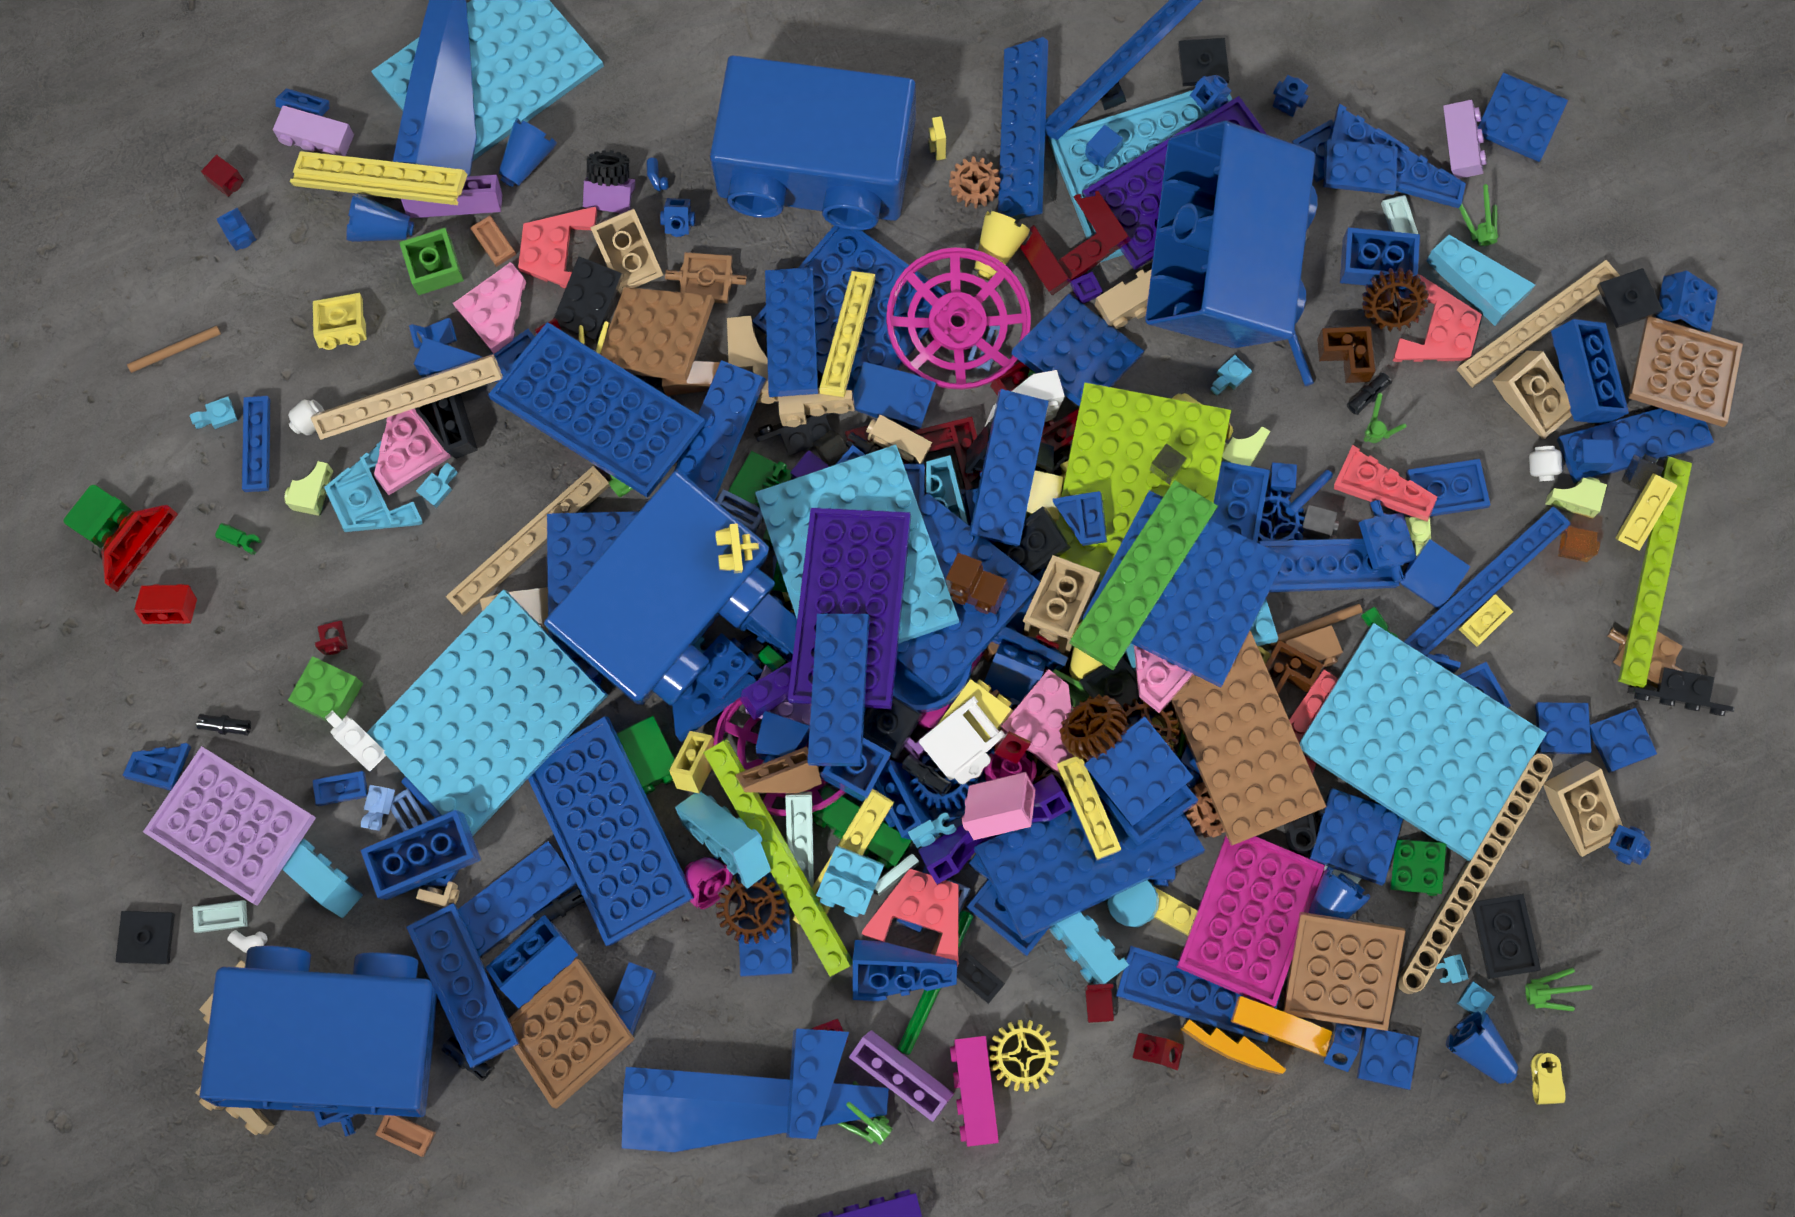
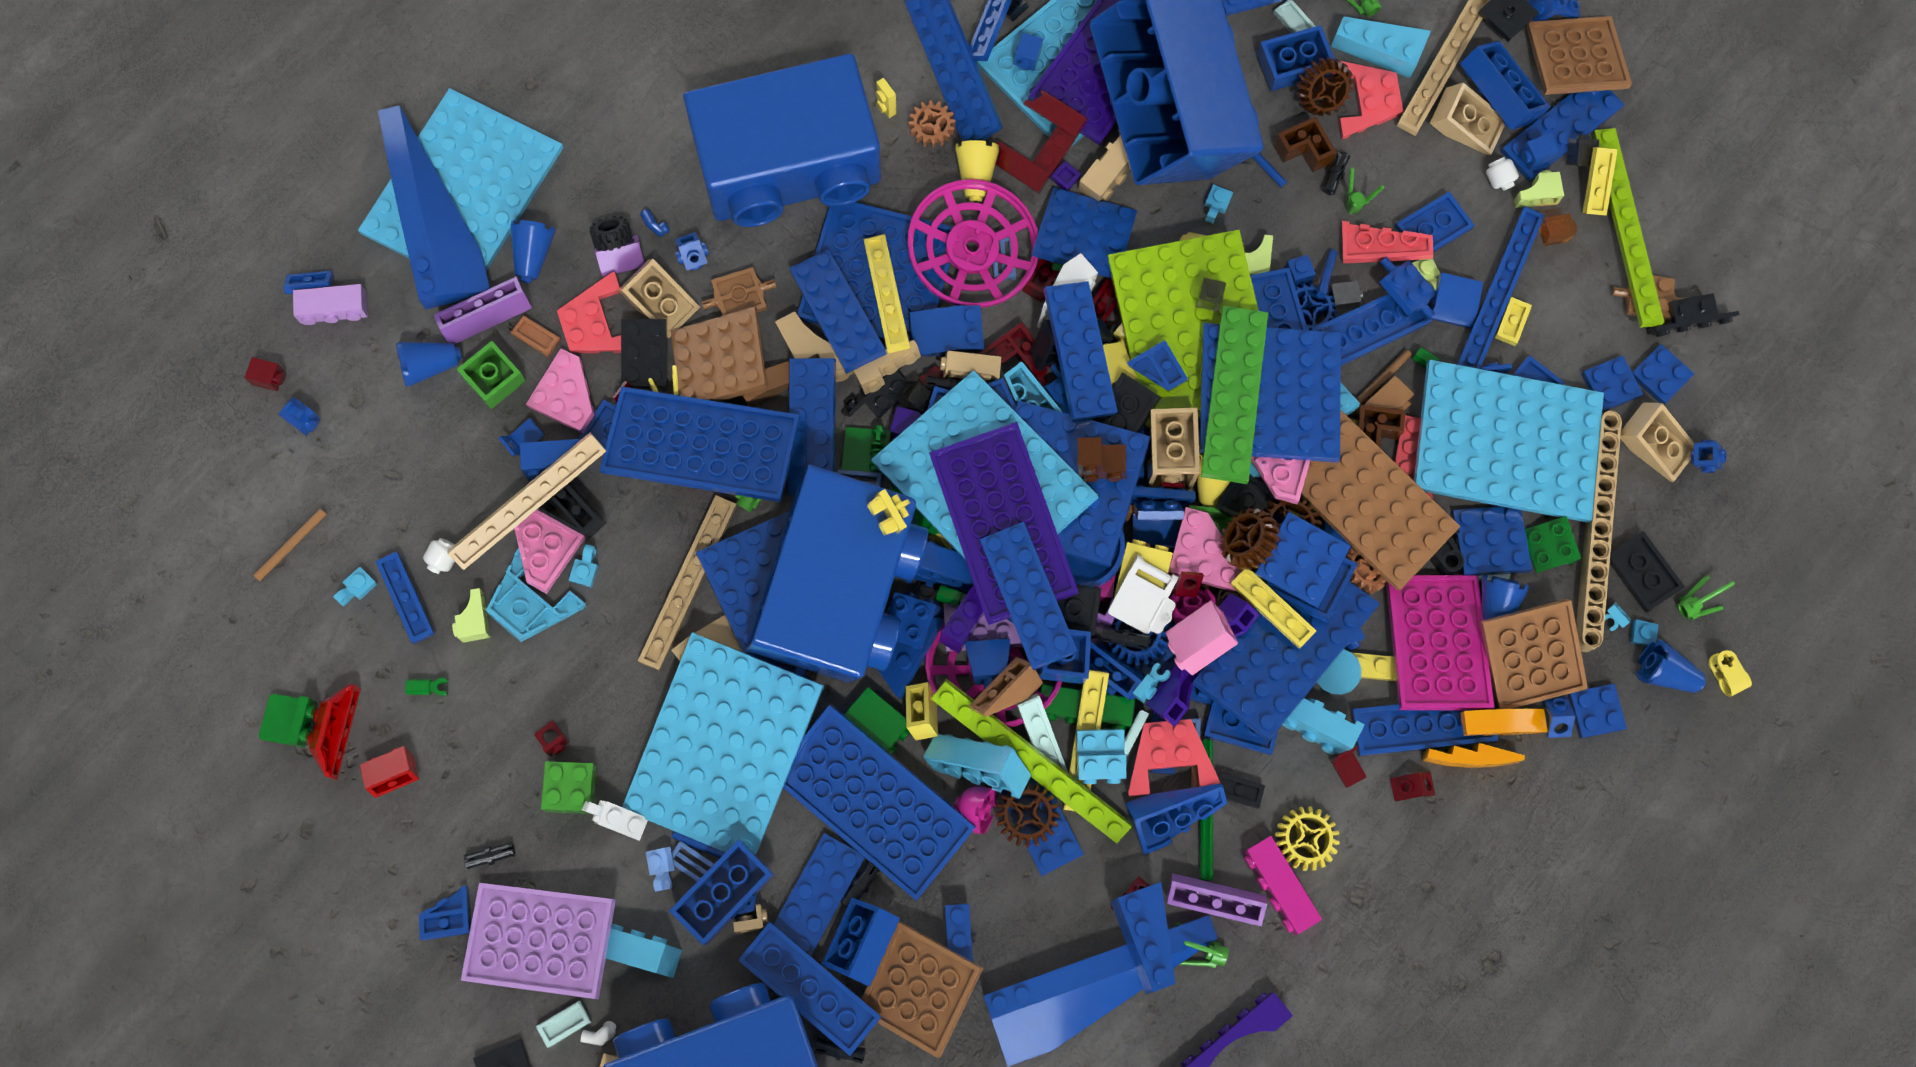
camera: 30 degrees left, 0 degrees up
(339, 321) = (431, 460): light yellow plate -> none
(340, 788) = (620, 866): blue plate -> none
(379, 178) = (411, 320): light yellow plate -> none

